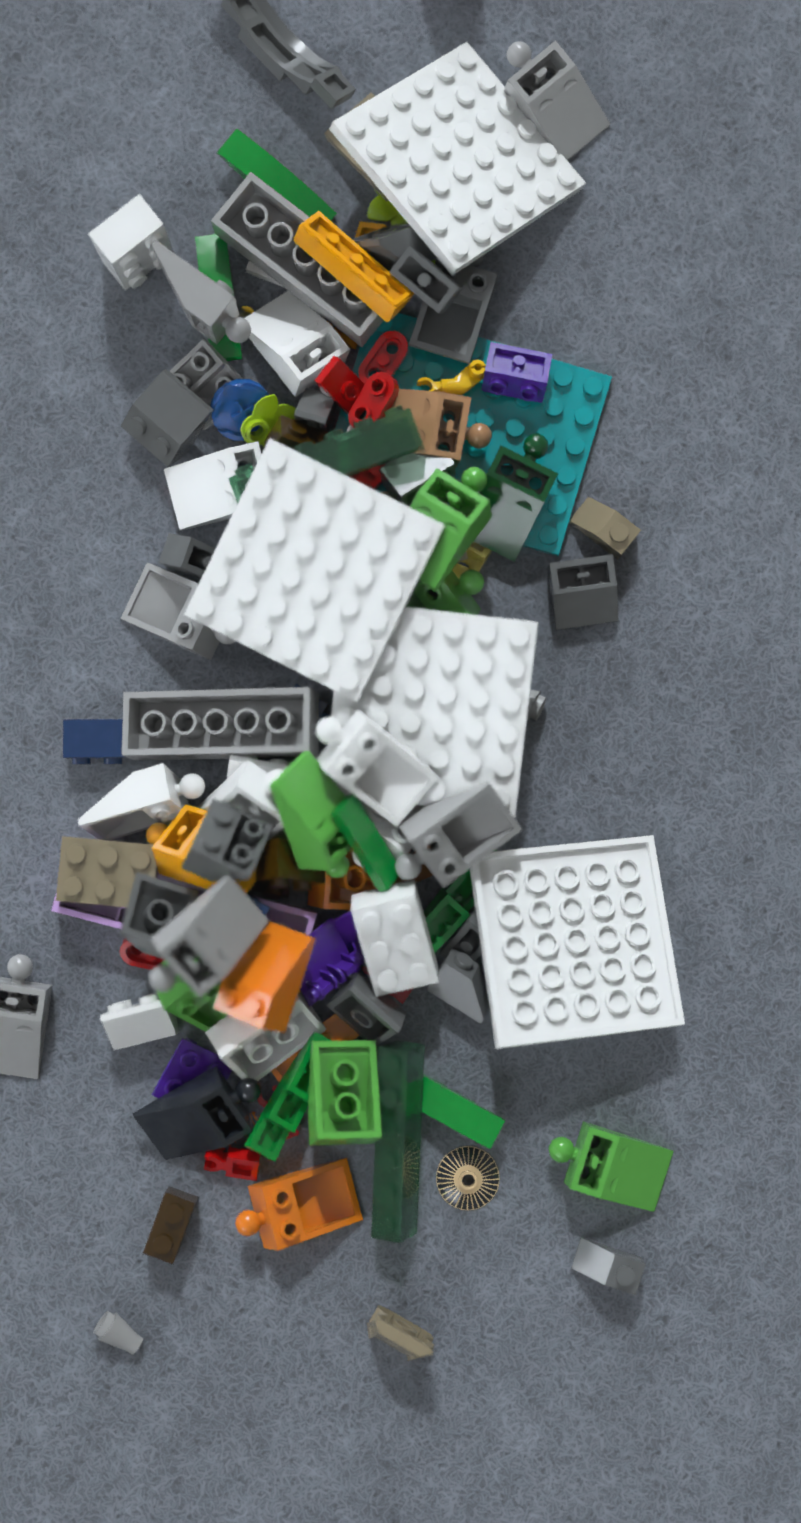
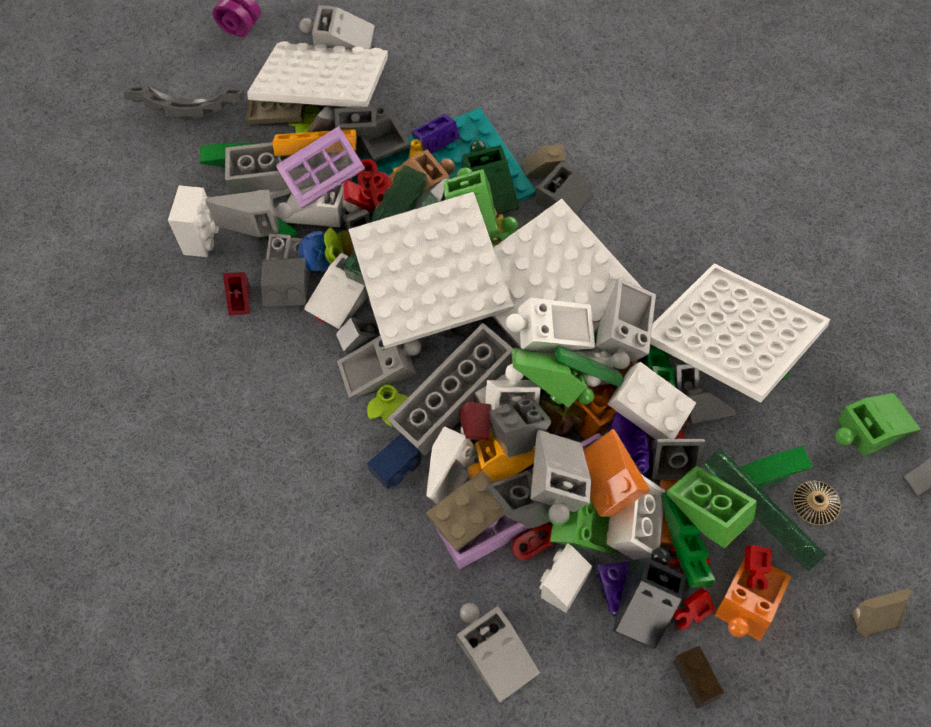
camera: 40 degrees left, 25 degrees down
(110, 379) = (237, 293): none -> dark red slope
(147, 670) = (385, 407): none -> lime plate
(196, 790) = (475, 420): none -> dark red slope
(325, 310) = (320, 167): none -> lavender piece
(337, 1181) = (758, 563): none -> red plate

